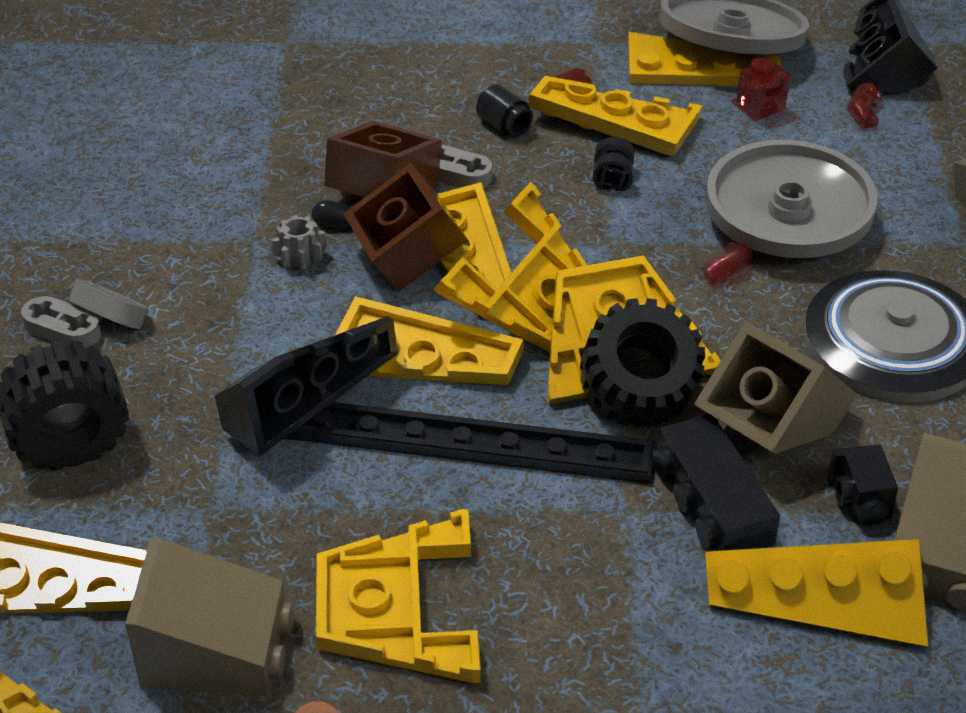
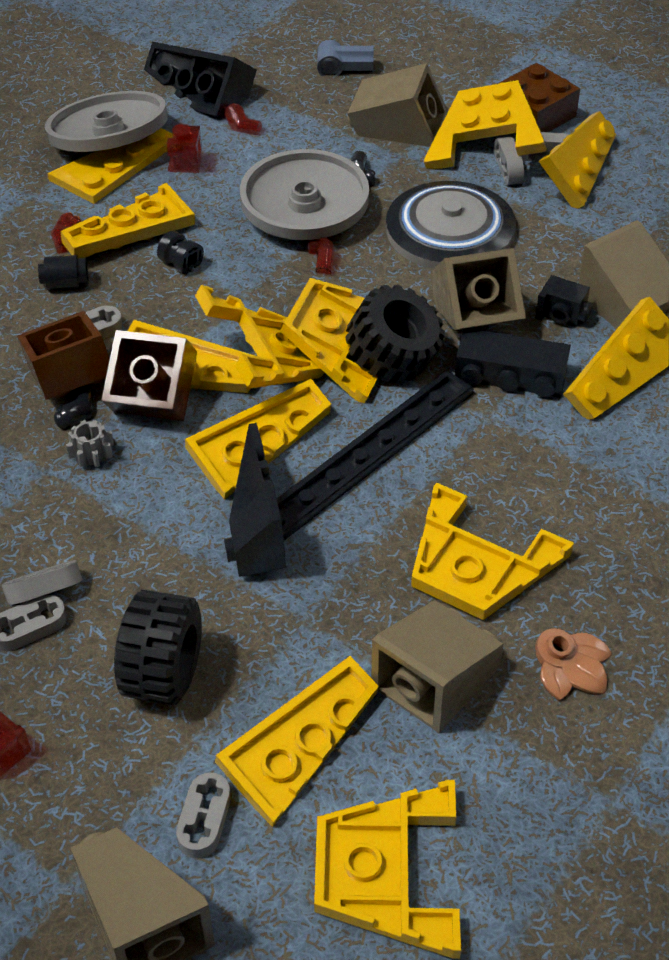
camera: 55 degrees left, 5 degrees up
(893, 218) = (360, 159): none -> black arm

